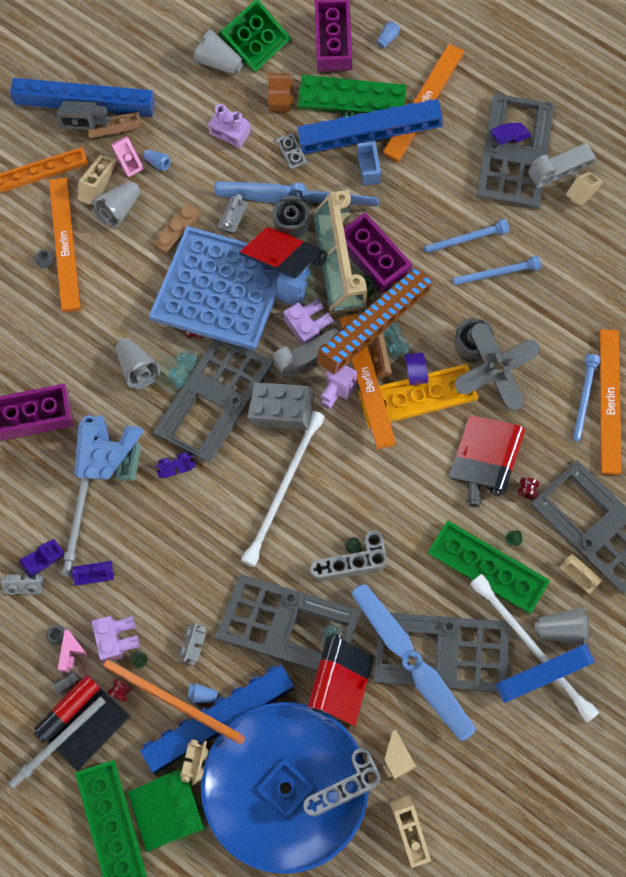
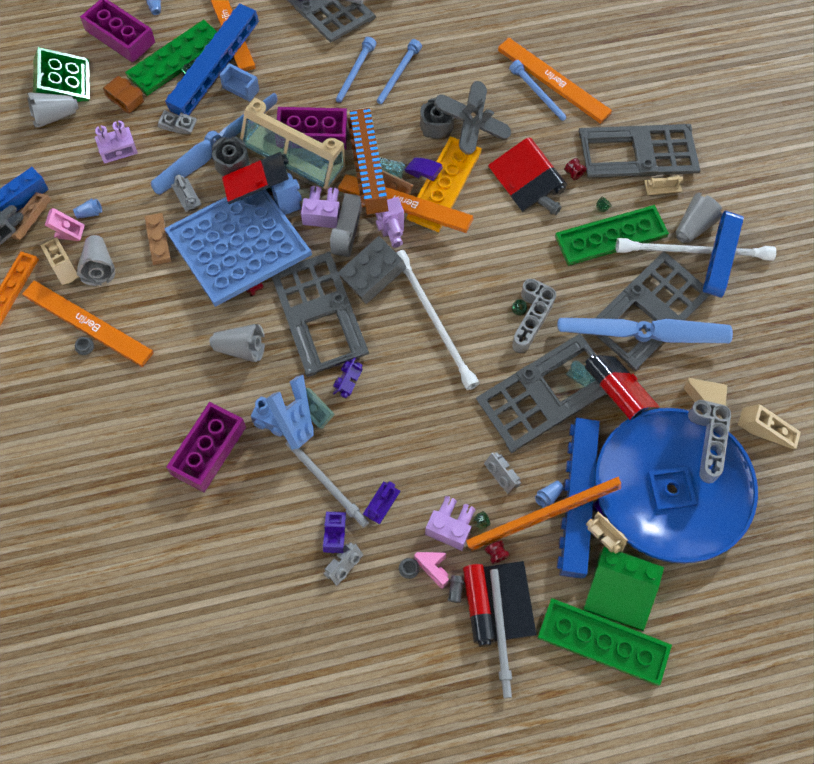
camera: 55 degrees left, 5 degrees down
(177, 374) = (270, 310): clear light blue hinge -> none

